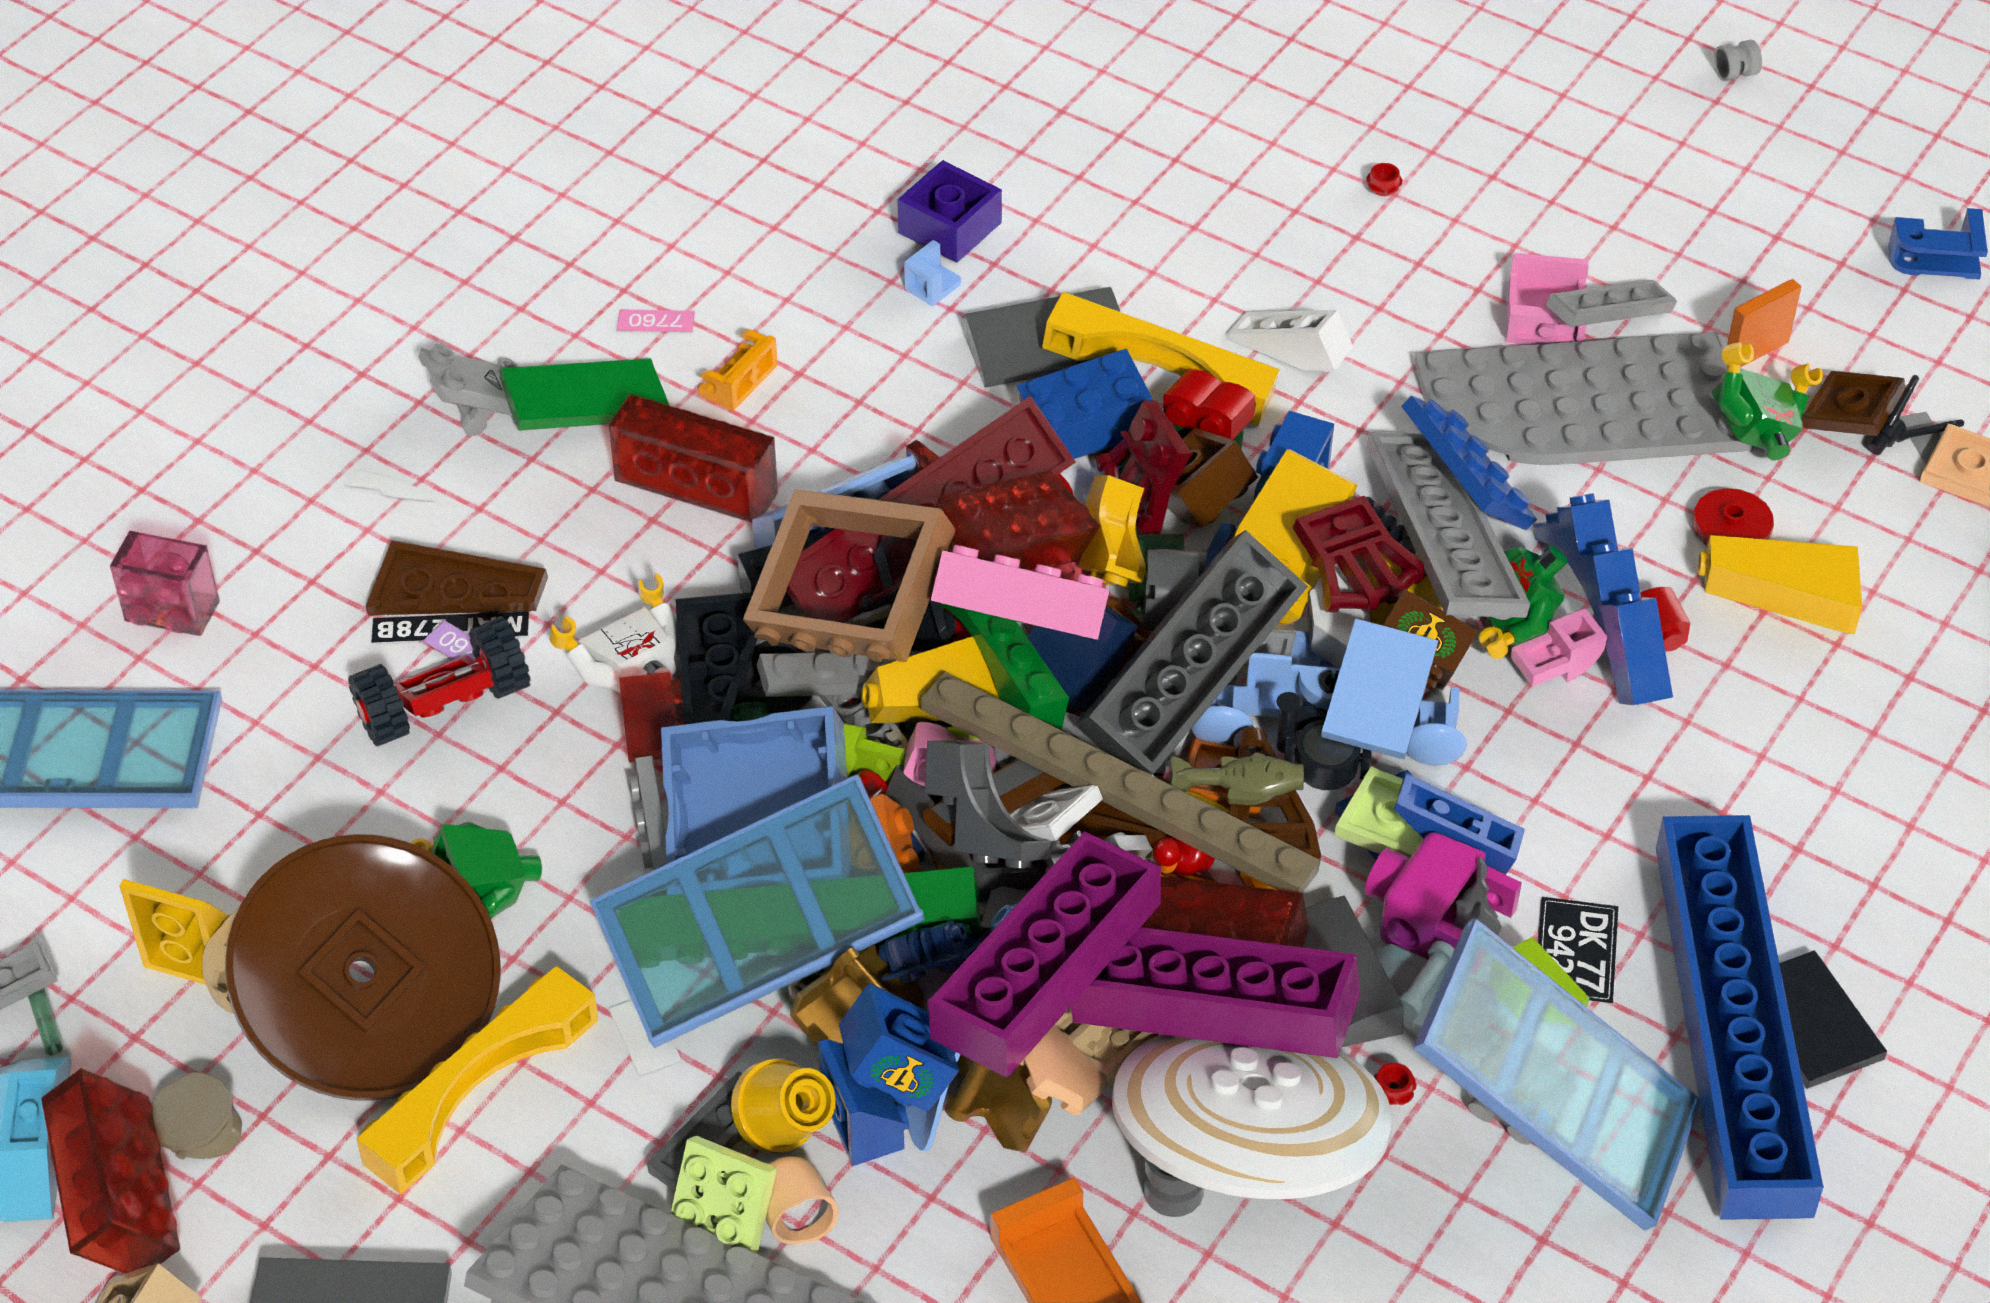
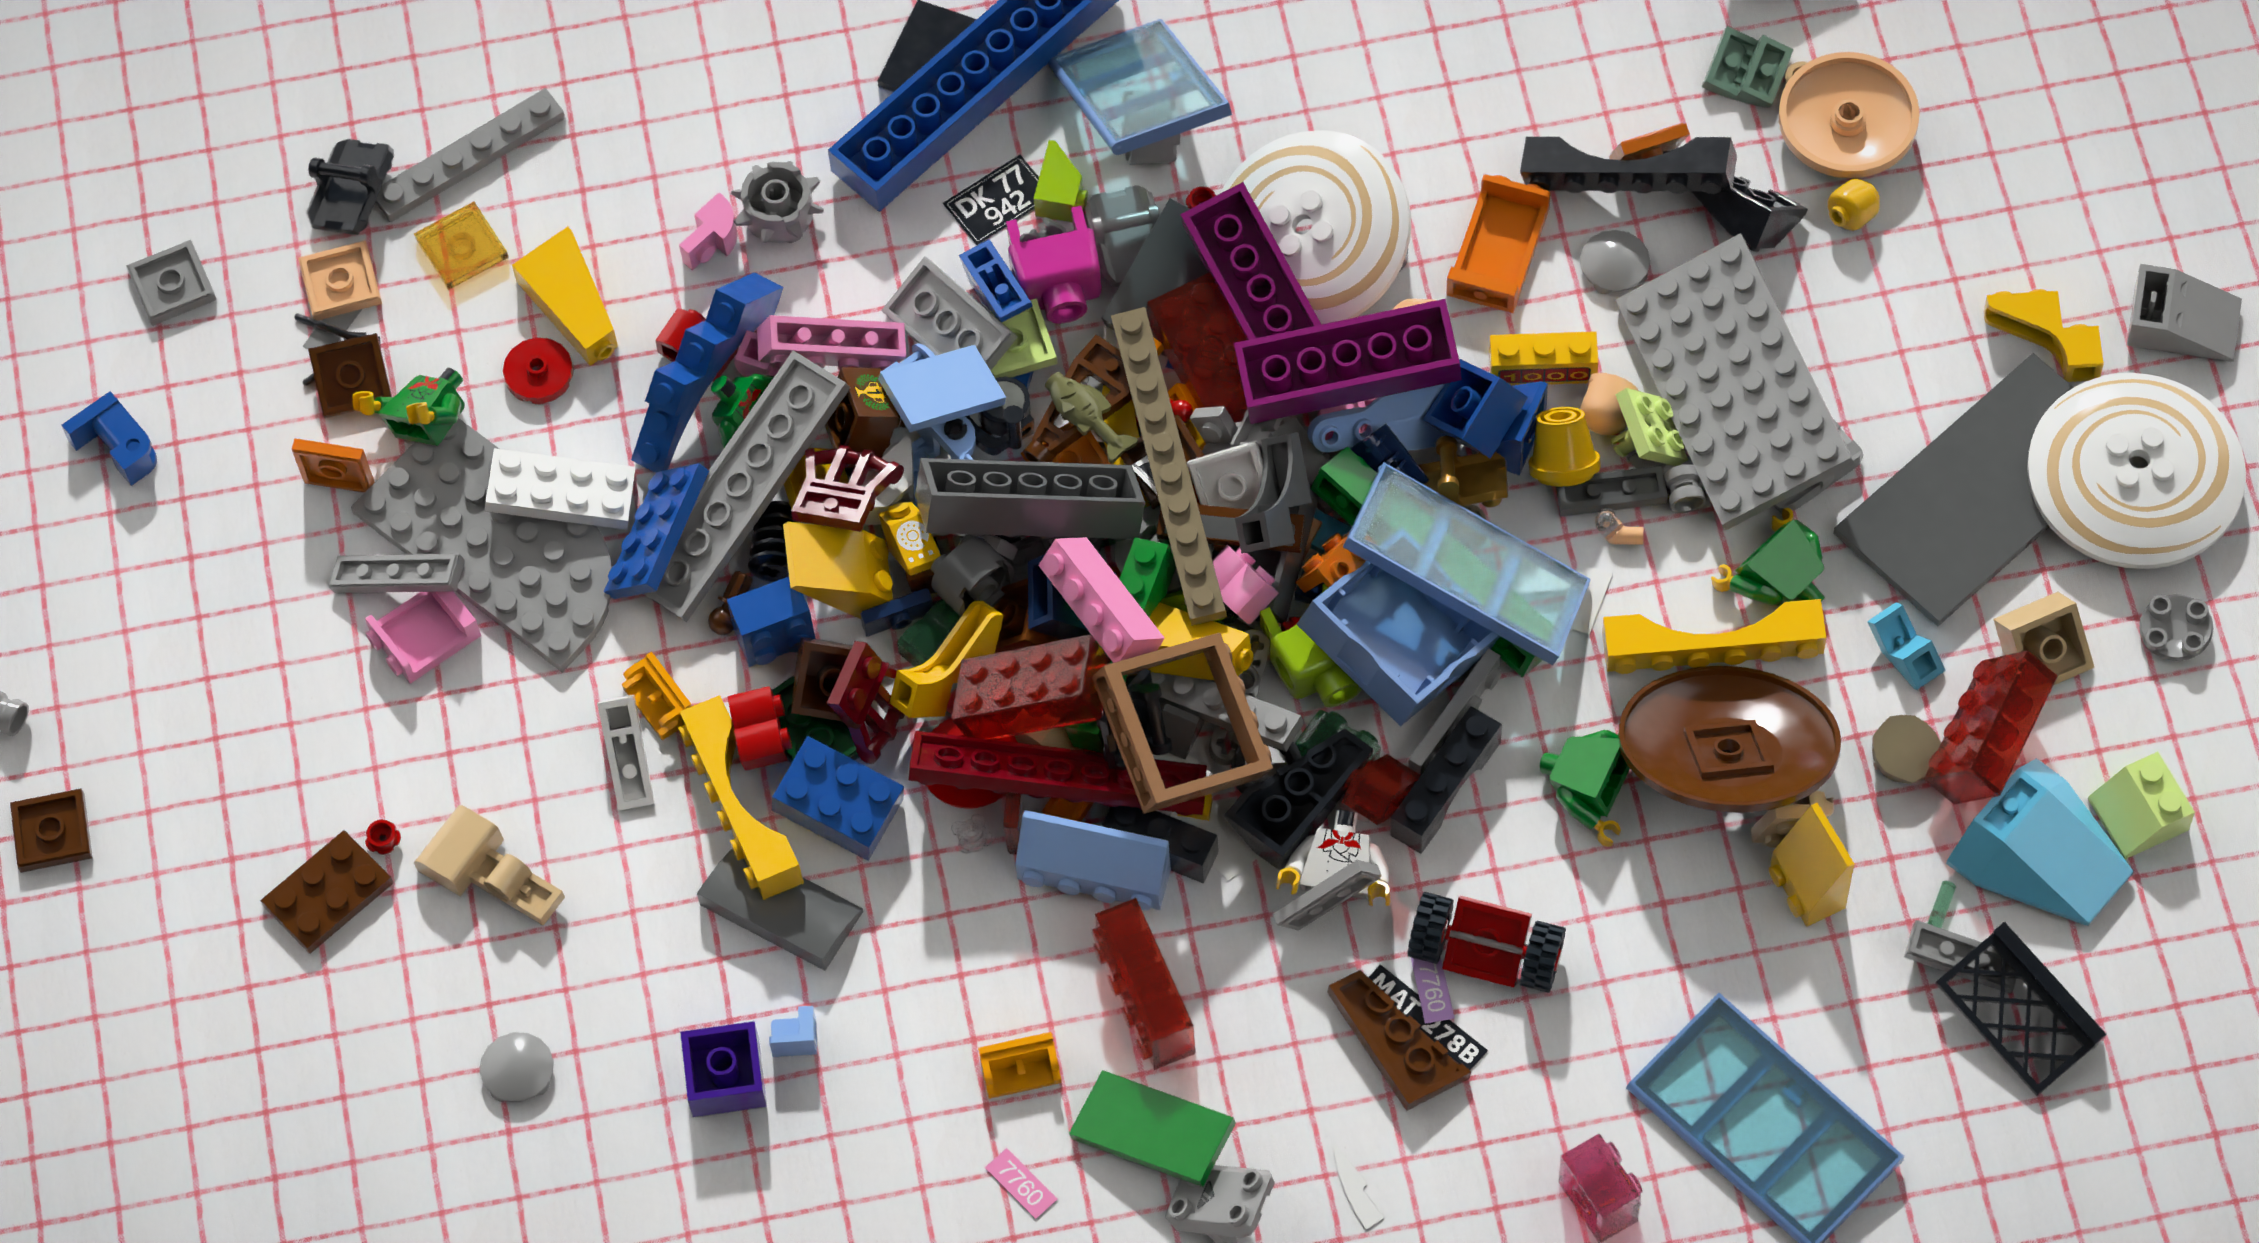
camera: 130 degrees left, 15 degrees up
(272, 1220) = (1909, 653): none -> medium azure slope
(468, 1178) = (1779, 567): none -> green torso
(605, 603) = (1327, 895): none -> light grey tile
(608, 781) = (1427, 802): none -> black arch
(635, 1180) = (1684, 489): none -> light grey wheel
(666, 1105) = (1615, 531): none -> arm
(903, 1193) = (1544, 357): none -> yellow brick
(1102, 136) = (516, 1067): none -> light grey dish
(1311, 205) = (467, 854): none -> tan plate
(1316, 392) = (656, 695): none -> light orange hinge
(1352, 472) = (720, 618): none -> reddish brown axle
(1374, 131) = (326, 891): none -> reddish brown plate
(1484, 783) = (946, 316): none -> light grey tile
(1526, 674) = (831, 341): none -> bright pink brick
(1584, 441) = (560, 489): none -> white plate
(1605, 39) = (51, 830): none -> reddish brown tile
(1737, 766) = (777, 202): none -> light grey brick
(1757, 717) = (714, 231): none -> bright pink brick
(1928, 557) = (461, 245): none -> clear yellow tile

